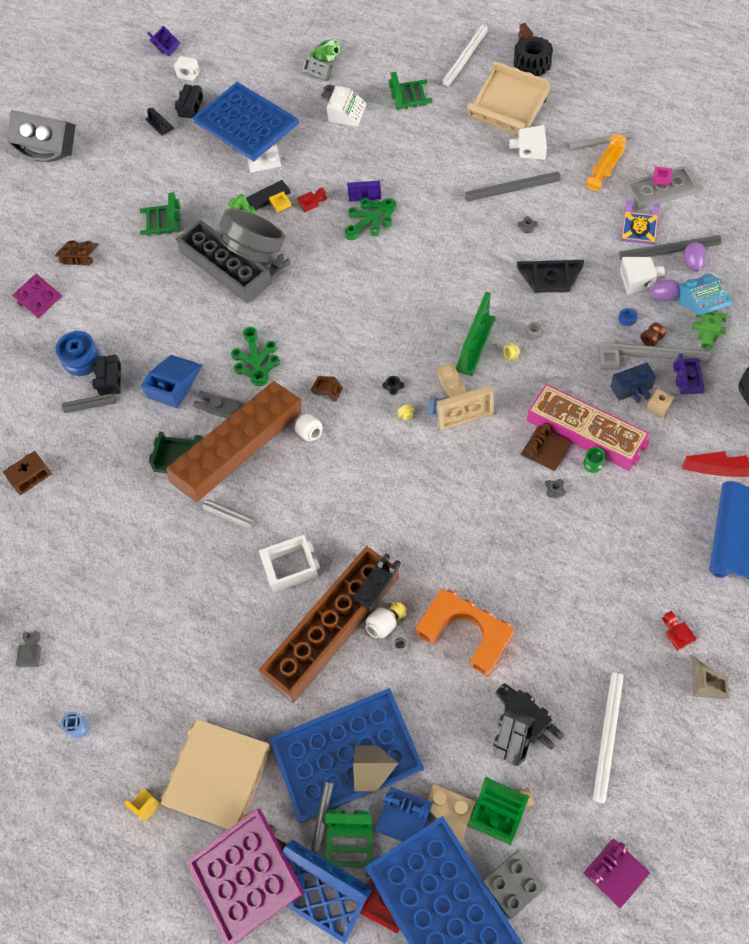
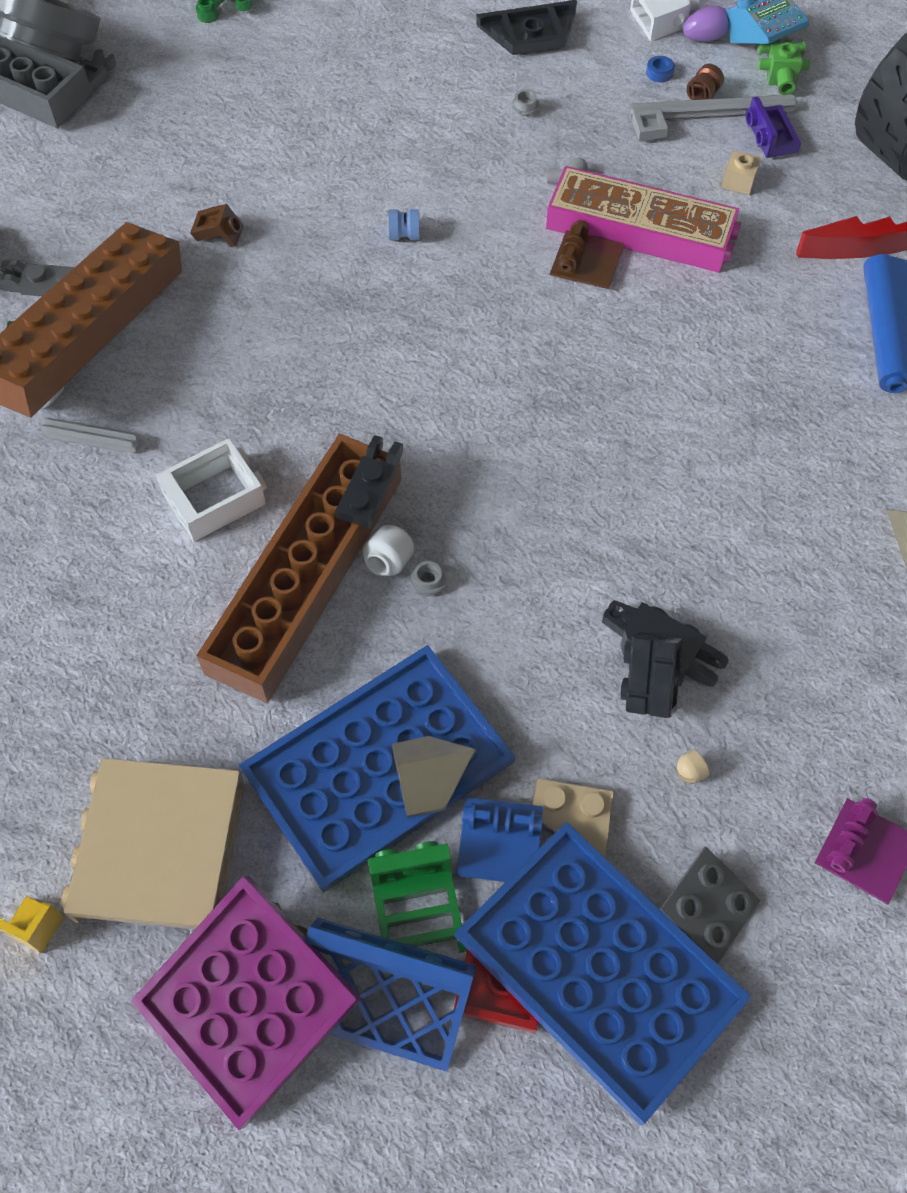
camera: 20 degrees left, 0 degrees up
(255, 359) = (97, 226): green plant -> none
(308, 427) = (199, 285): white head -> none
(320, 824) = (360, 868): dark grey bar -> none
(393, 380) = (324, 206): black plate -> none
(398, 609) = (413, 526): light yellow plate -> none
(405, 412) = (354, 241): light yellow plate -> none
(448, 608) = (497, 507): orange arch -> none
(461, 405) = (442, 216): tan piece -> none
(476, 338) = (441, 122): green fence -> none
(498, 811) = (657, 791): green plate -> none
(511, 351) = (498, 135): light yellow plate -> none
(555, 493) = (616, 312): dark grey plate -> none
(594, 459) = (665, 261): green wheel -> none
(608, 737) = (796, 653): white axle -> none
(633, 381) = (694, 149): dark blue brick -> none
(678, 634) = (859, 481): red plate -> none

